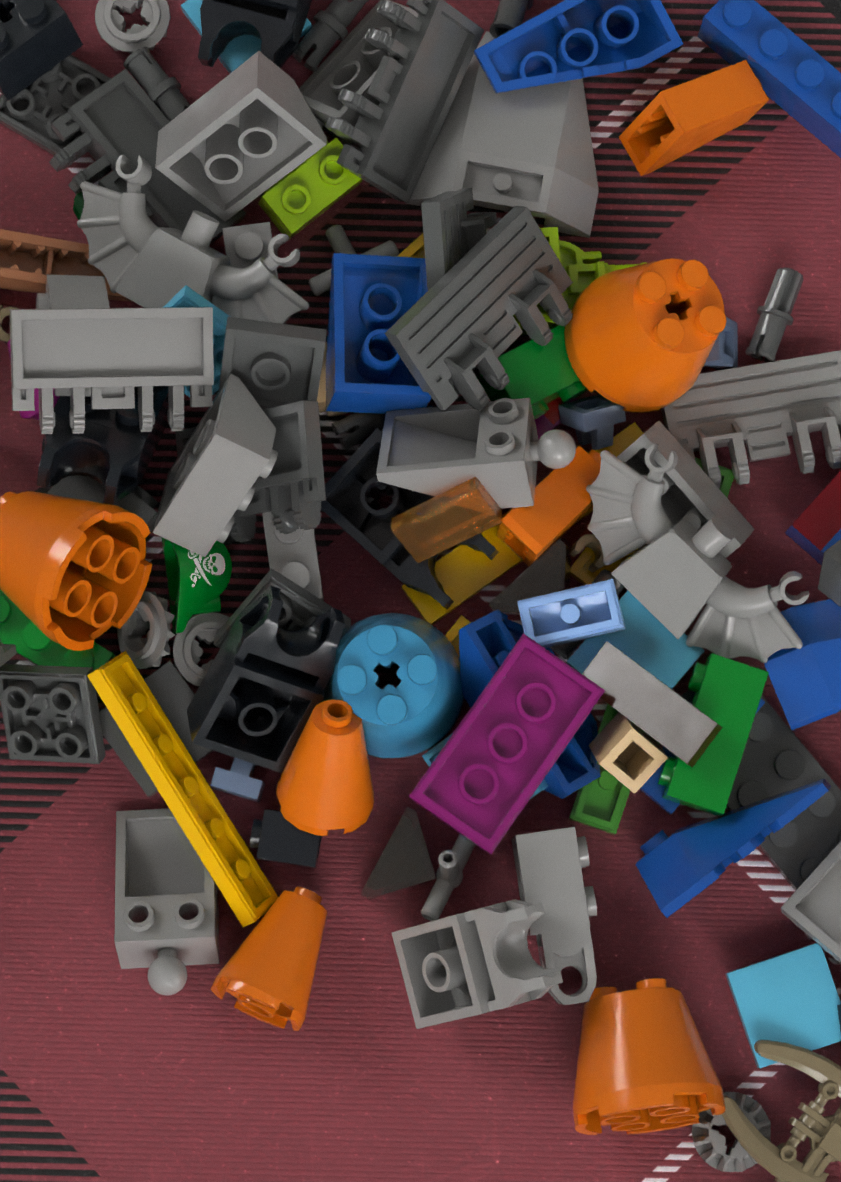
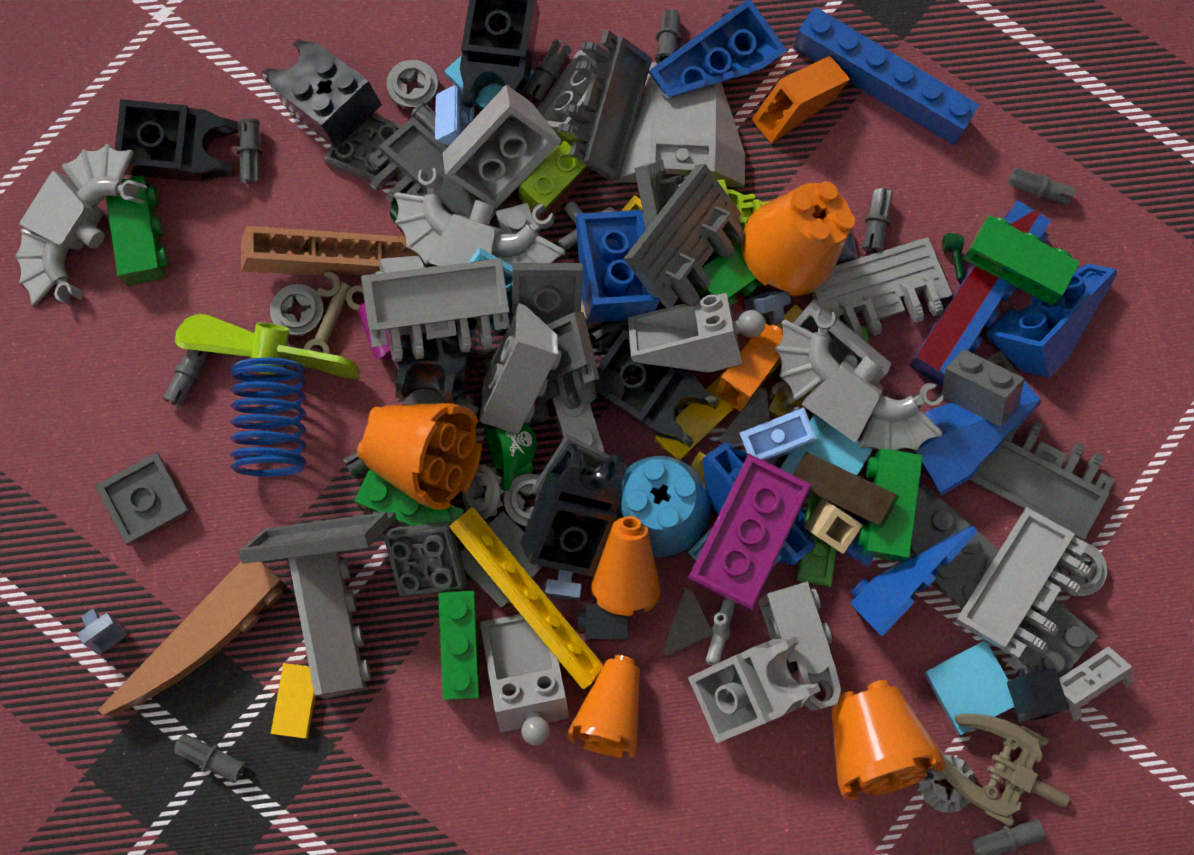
camera: 10 degrees left, 5 degrees down
(81, 841) = (459, 646): none -> green brick
(180, 75) = (451, 115): none -> light blue slope
(446, 520) = (684, 382): clear orange tile -> none

